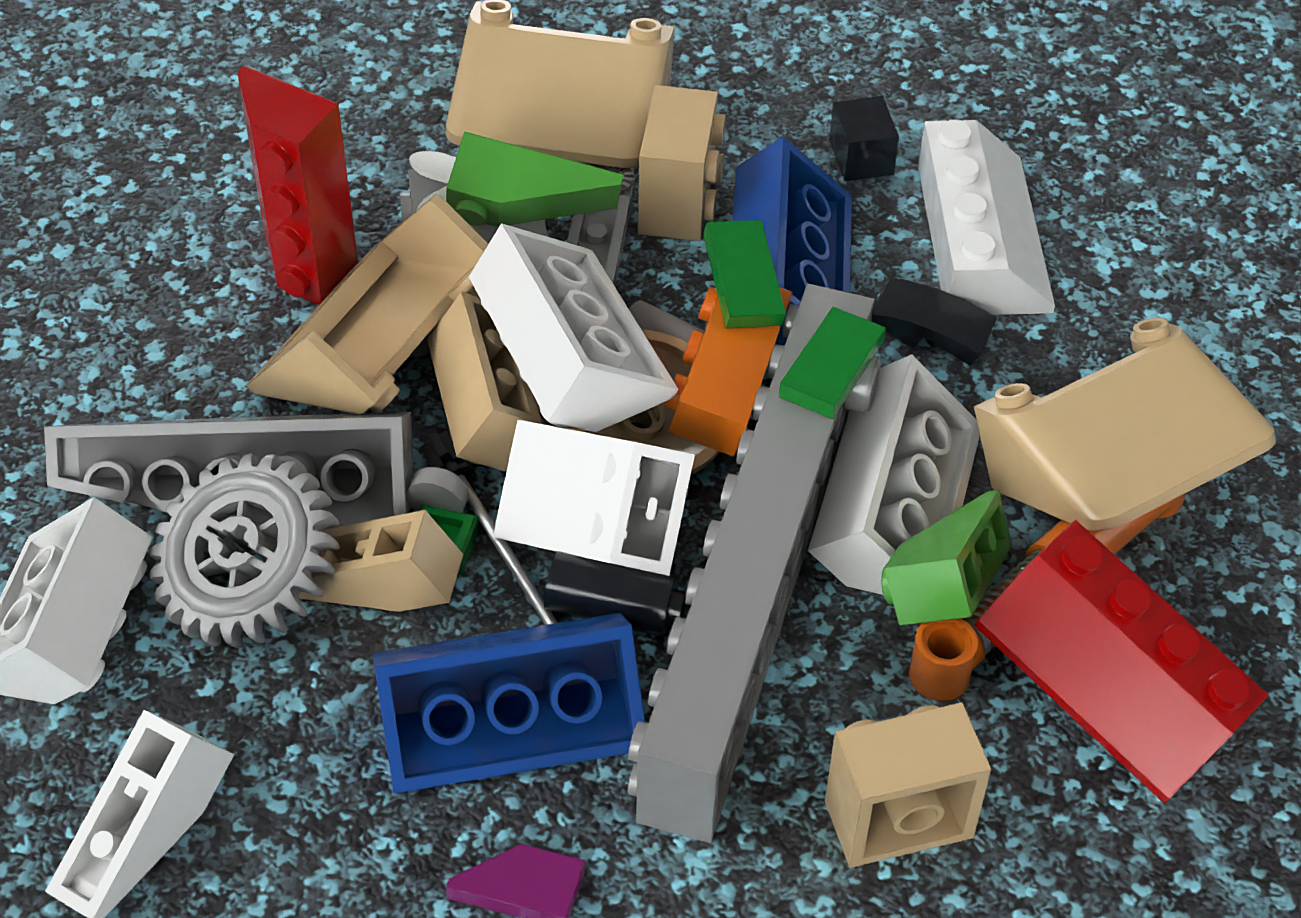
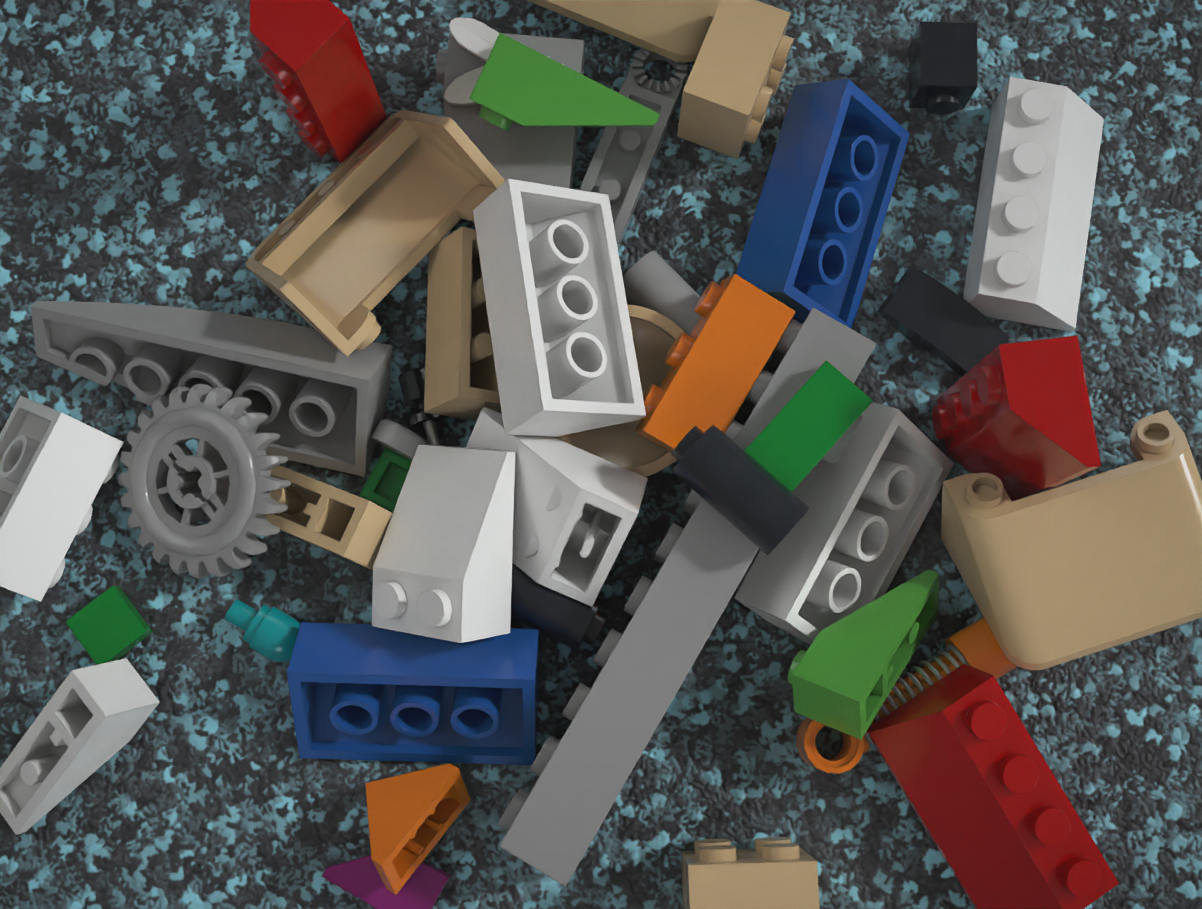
camera: 15 degrees right, 30 degrees up
(165, 699) = (109, 626): none -> green tile
(335, 680) = (267, 630): none -> teal cylinder
(514, 547) = (449, 547): none -> white slope
(533, 799) = (410, 817): none -> orange slope
(744, 274) = (747, 290): green tile -> none
(784, 408) = (737, 487): none -> black brick
(1020, 310) = (1022, 416): none -> red slope

